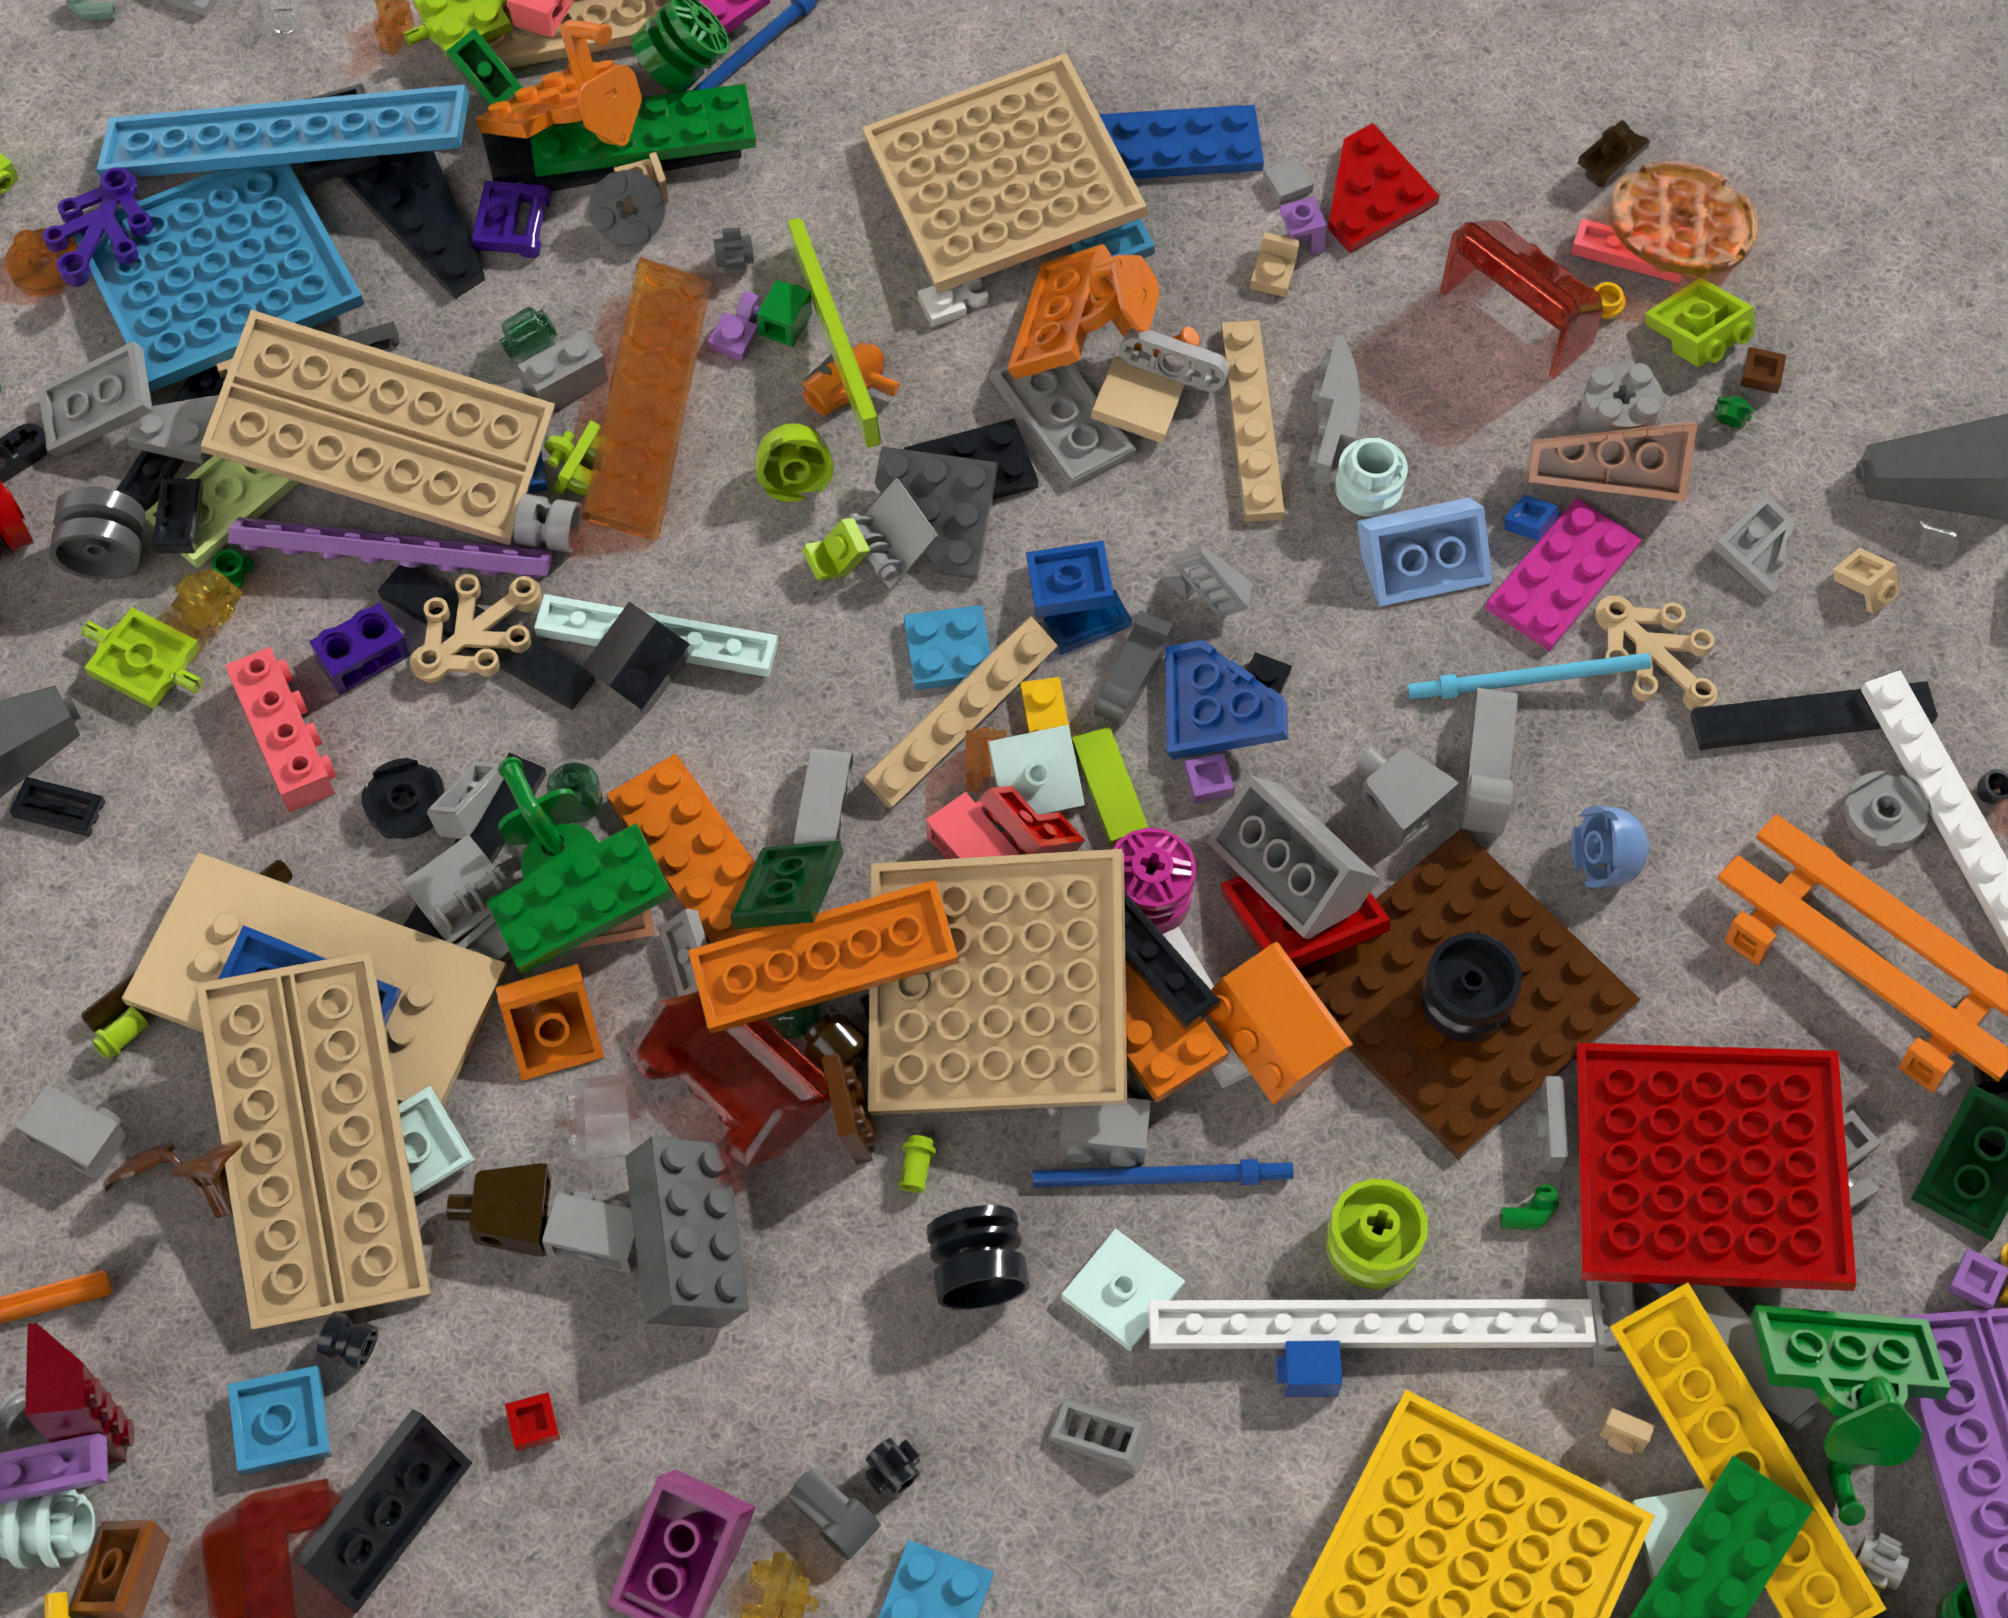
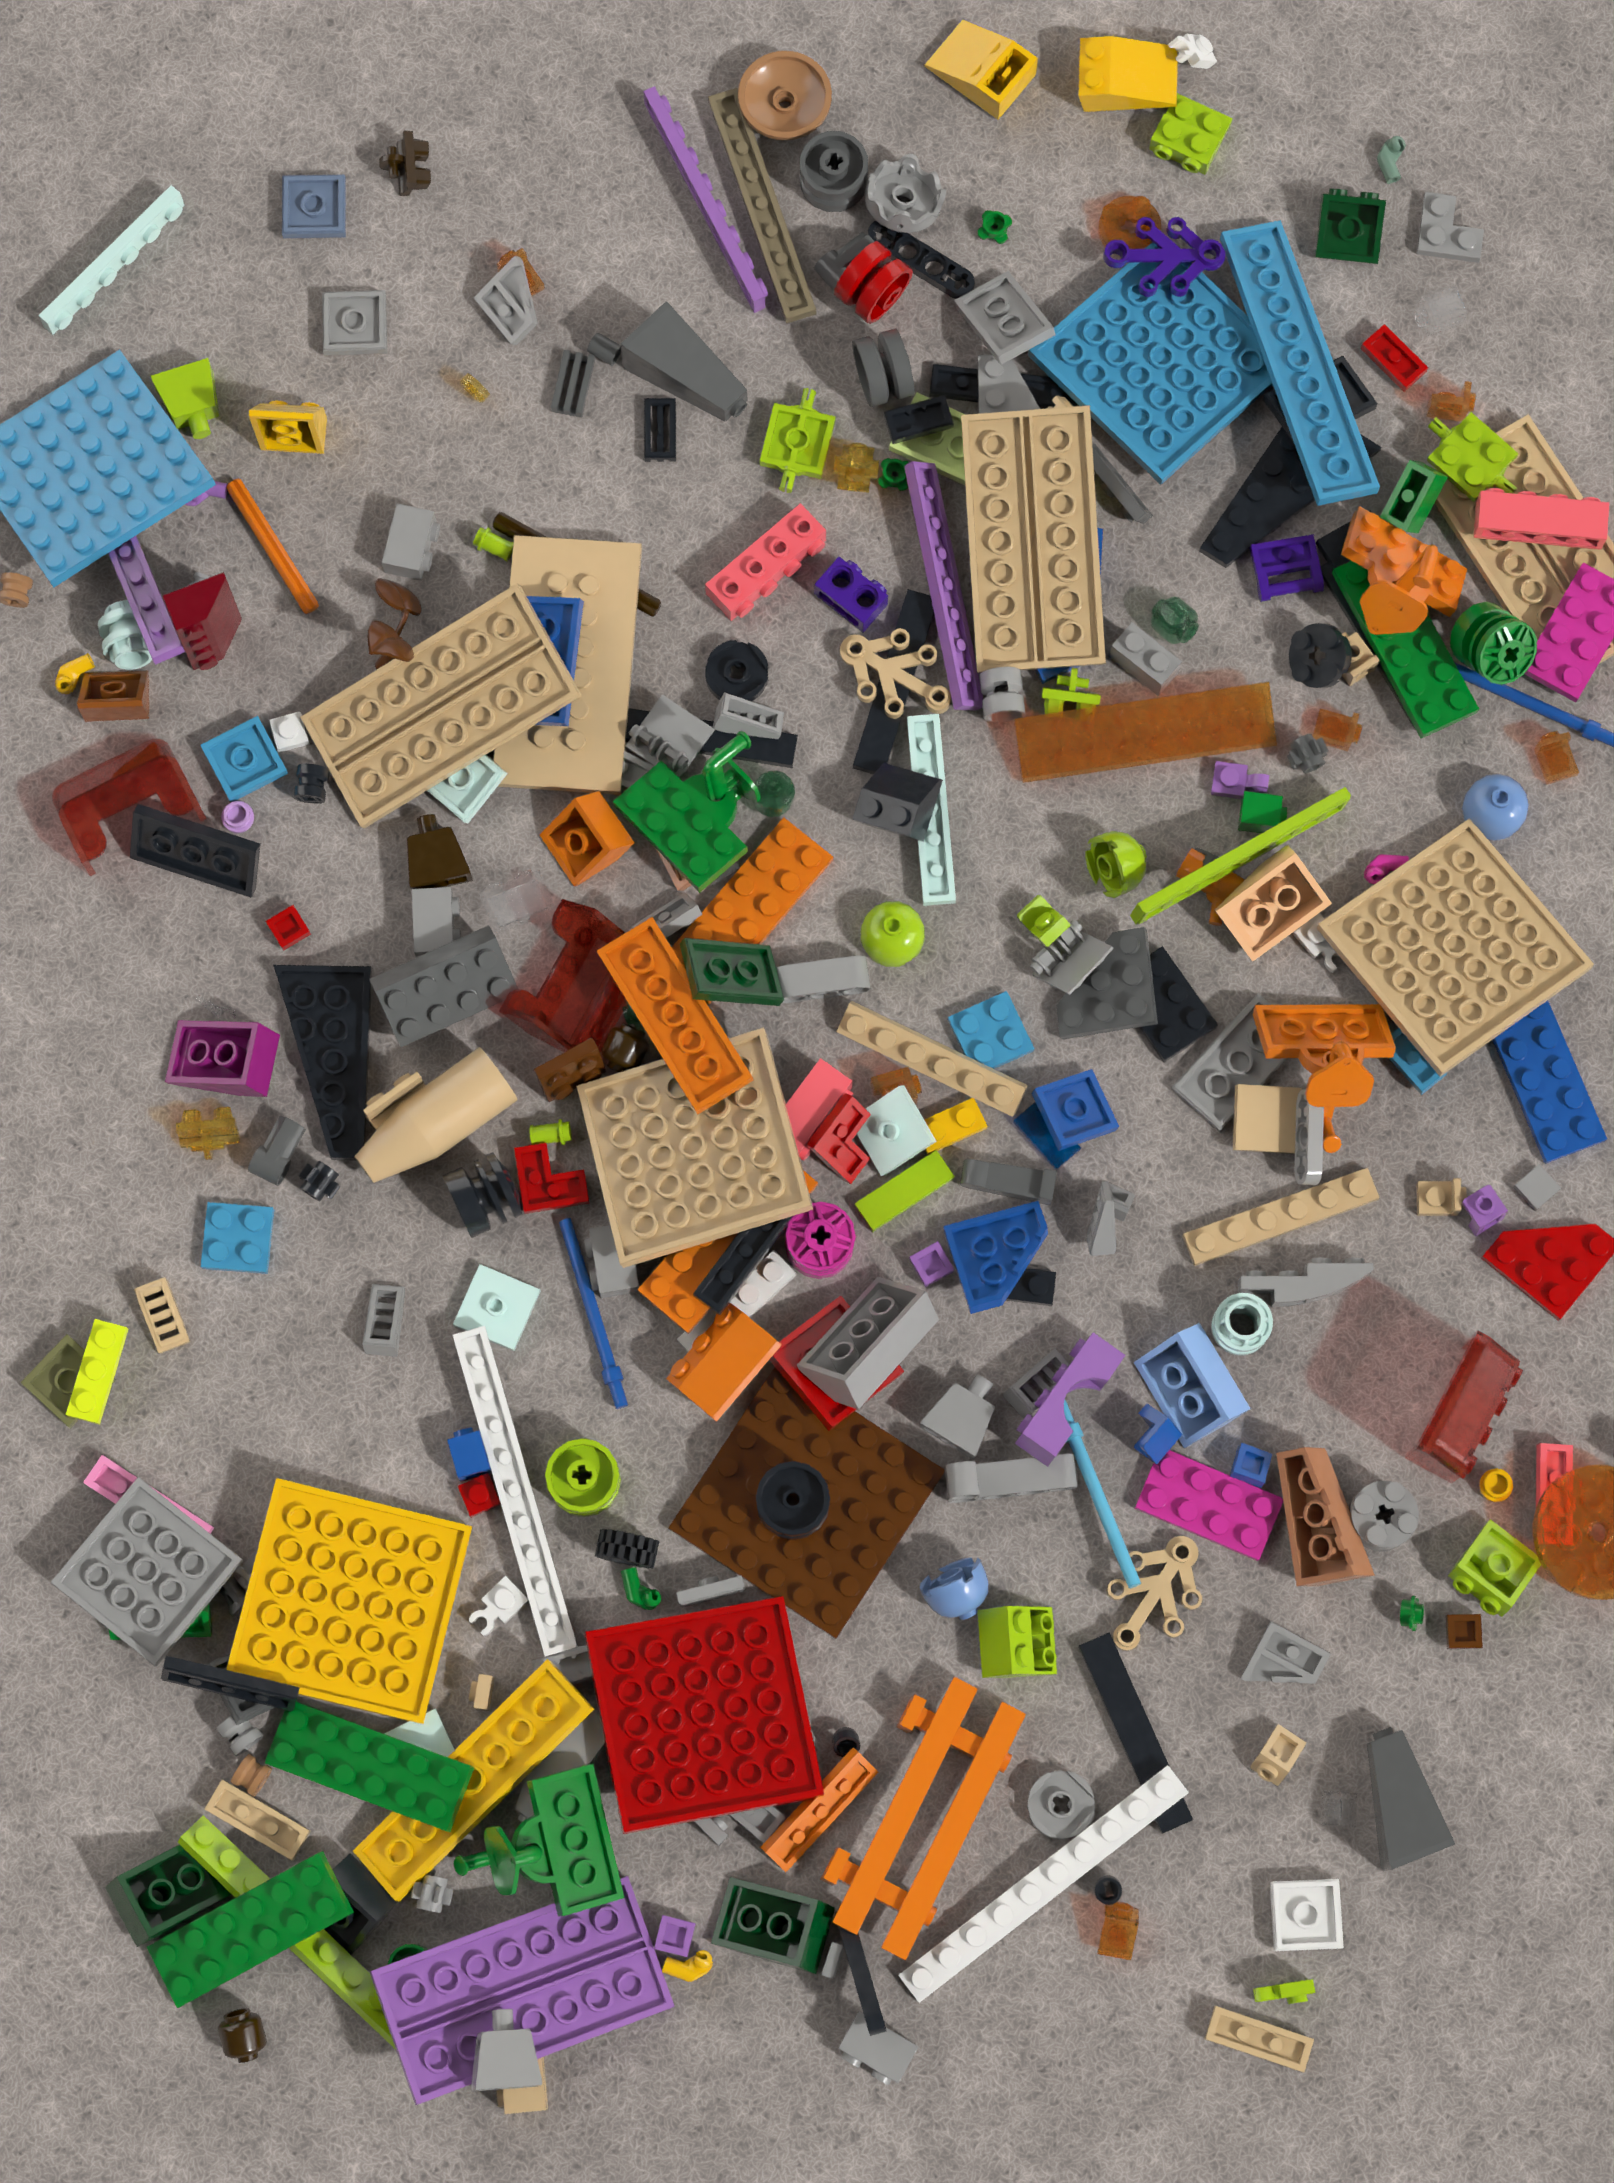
camera: 75 degrees right, 15 degrees up
(148, 56) = (1350, 226): none -> dark green plate
(263, 1353) = (289, 732): none -> white plate
(316, 60) = (1394, 358): none -> red plate
(354, 1450) = (237, 817): none -> lavender plate
(696, 1401) = (332, 1032): none -> black wing
(719, 213) = (1337, 729): none -> clear orange bracket
(792, 715) = (892, 933): none -> lime cylinder
(821, 41) = (1556, 757): none -> clear orange bracket
(853, 101) = (1496, 806): none -> medium blue cylinder
(856, 1294) = (427, 1120): none -> tan piece
(883, 220) = (1382, 865): none -> dark pink arm
(894, 316) = (1272, 903): none -> light nougat slope
(988, 1184) = (543, 1189): none -> red plate
(1364, 1374) = (479, 1495): none -> red plate
(1389, 728) = (1015, 1394): none -> light grey slope
(1447, 694) = (1048, 1428): none -> medium lavender arch
(1474, 598) = (1159, 1437): none -> blue panel
(1481, 1202) = (627, 1548): none -> black tyre
(1511, 1382) = (503, 1602): none -> white plate
(1687, 804) = (1017, 1641): none -> lime slope
(1769, 1021) = (844, 1740): none -> black hinge
(1858, 1082) = (817, 1814): none -> orange plate

